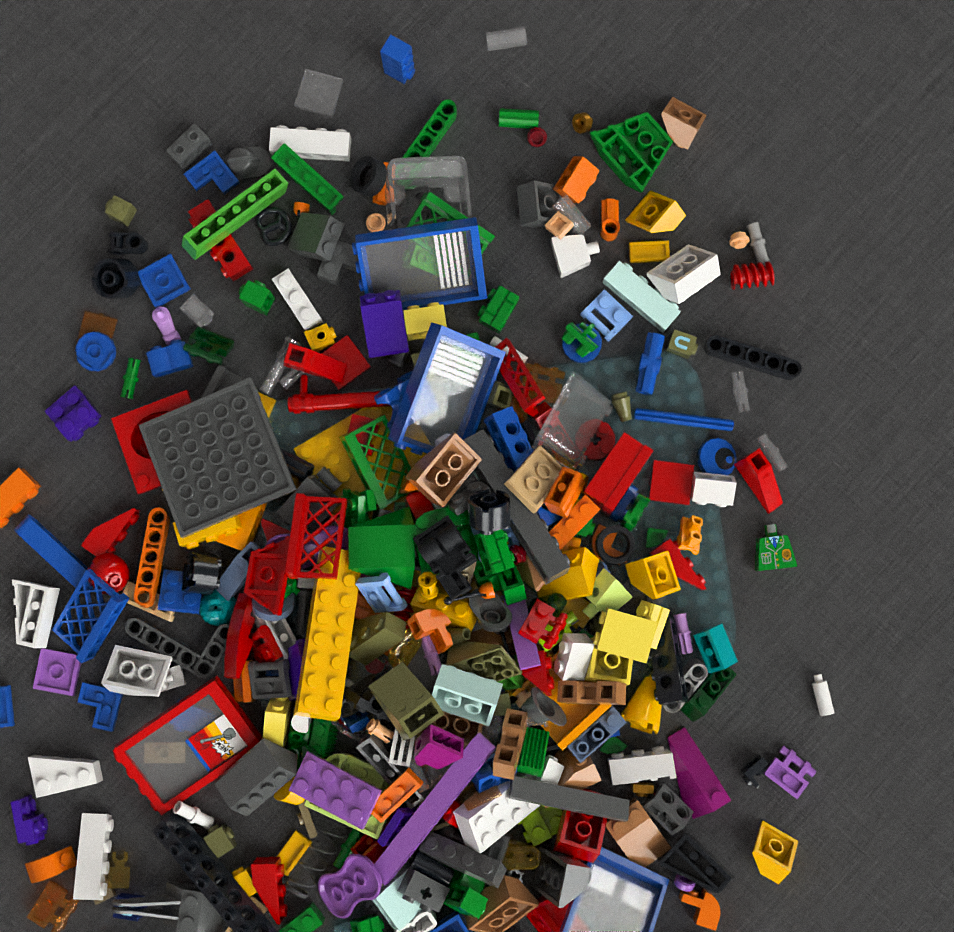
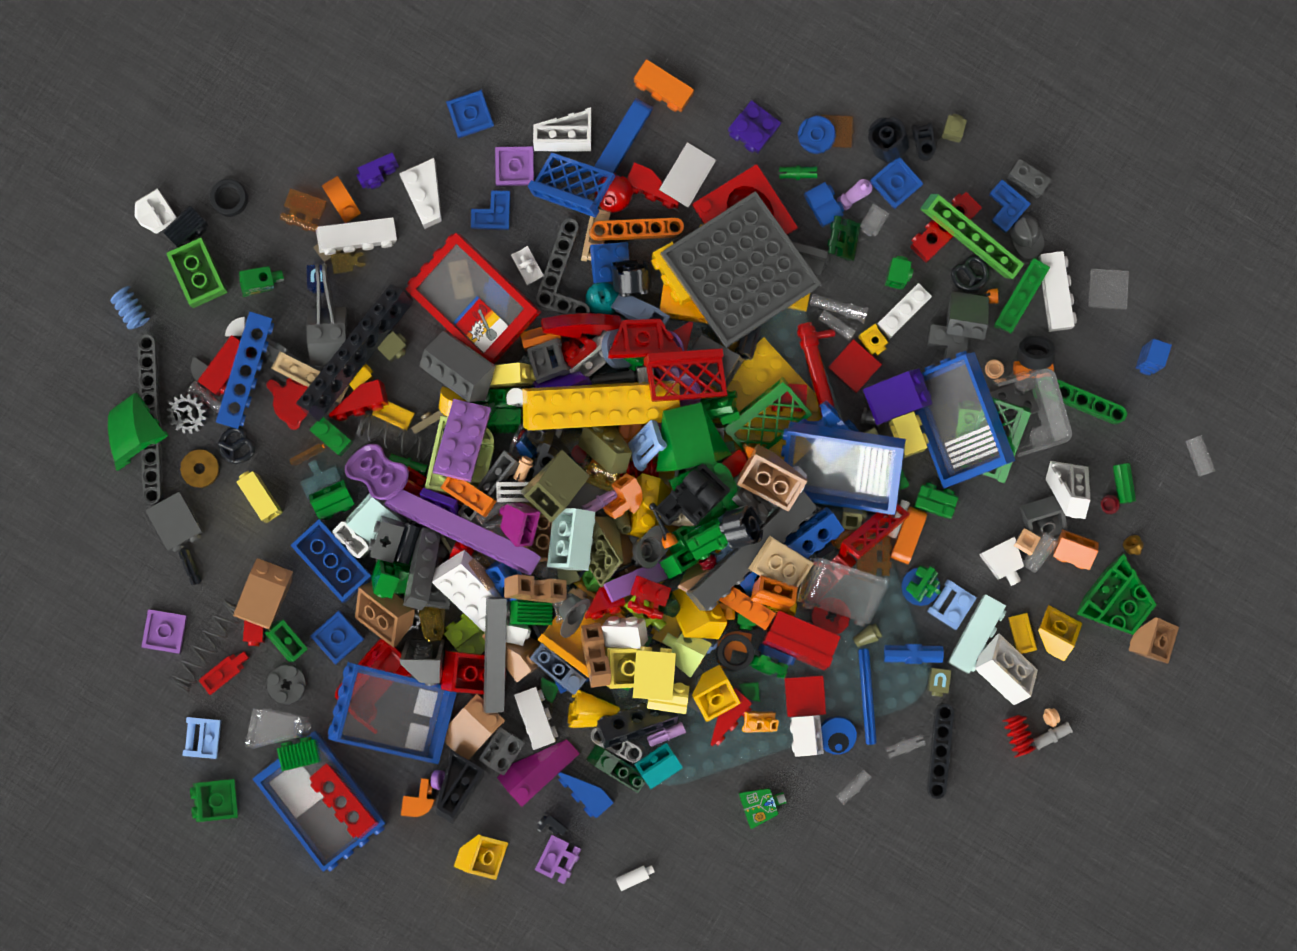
camera: 75 degrees right, 0 degrees up
(107, 492) = (687, 174): none -> white sticker
(136, 672) = (529, 238): white slope -> none
(193, 814) = (411, 318): white pin -> none
(314, 363) = (847, 340): red slope -> none
(329, 479) = (742, 375): dark grey pin -> none
(433, 588) = (662, 489): yellow bush -> none
(513, 170) = (1070, 487): none -> white wedge
(528, 343) = (908, 535): none -> orange beam
(609, 218) = (1046, 589): orange piece -> none
(642, 788) = (515, 724): pearl gold plate -> none
(731, 723) = (591, 795): none -> blue slope
(761, 479) = (825, 780): red slope -> none

